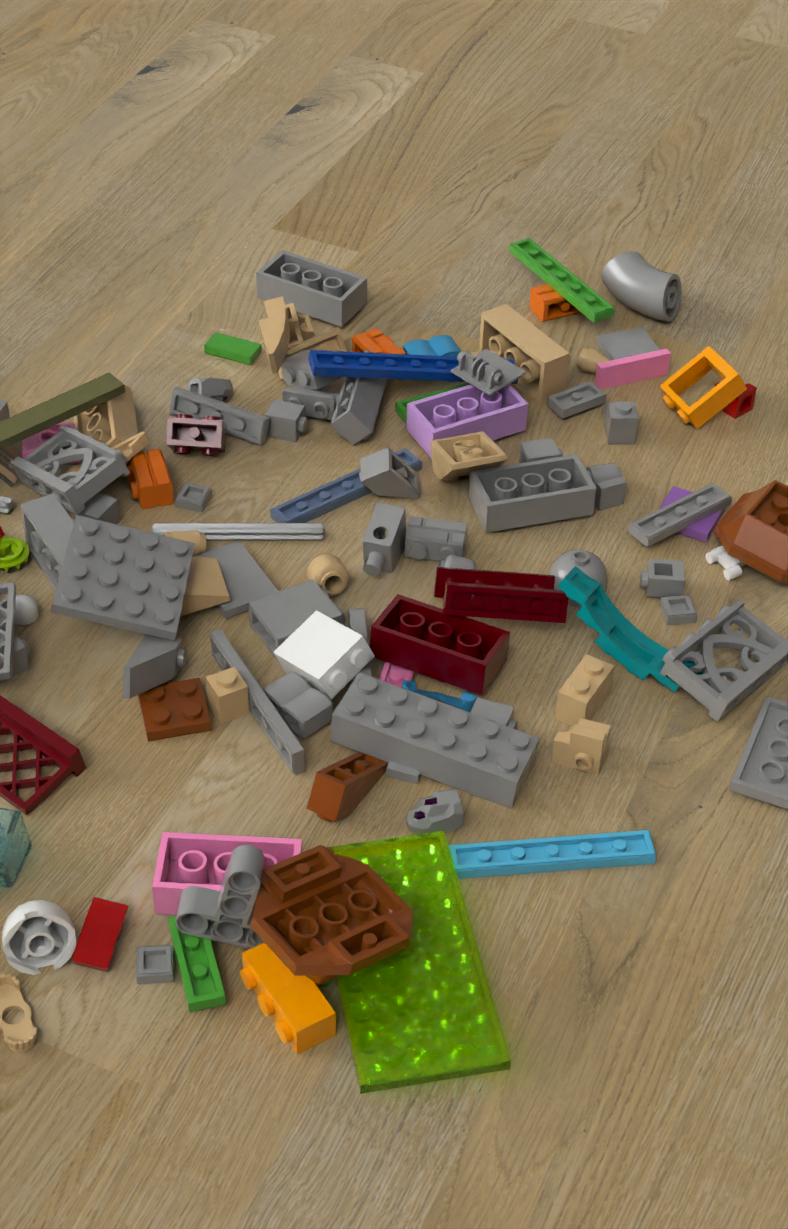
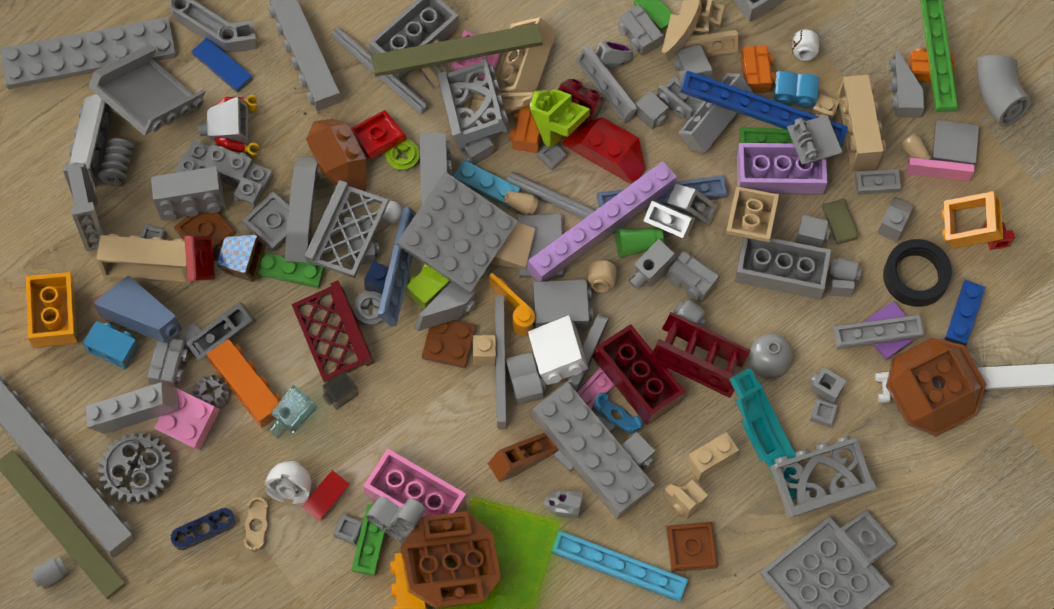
camera: 25 degrees right, 25 degrees up
(44, 674) = (376, 277): none -> dark blue brick
(55, 702) = (362, 302): none -> light grey gear
(55, 808) = (339, 390): none -> clear smoke brick
(68, 651) = (397, 275): none -> sand blue tile
(109, 658) = (426, 286): none -> lime brick
(178, 448) = (556, 115): none -> lime piece
(228, 362) = (640, 30): none -> light grey brick
(251, 638) = (523, 315): none -> light orange door
(256, 469) = (608, 148): none -> red wedge
(294, 525) = (601, 223): none -> lavender brick
(343, 531) = (636, 240): none -> bright green plant
(364, 493) = (669, 219): none -> white brick
(416, 321) = (805, 45): none -> white head
(549, 319) = (907, 91): none -> light grey slope
(564, 441) = (839, 221): none -> olive tile
(626, 797) = (691, 547): none -> dark orange tile
(685, 435) = (925, 249): none -> black tyre
(751, 466) = (964, 313): none -> blue plate

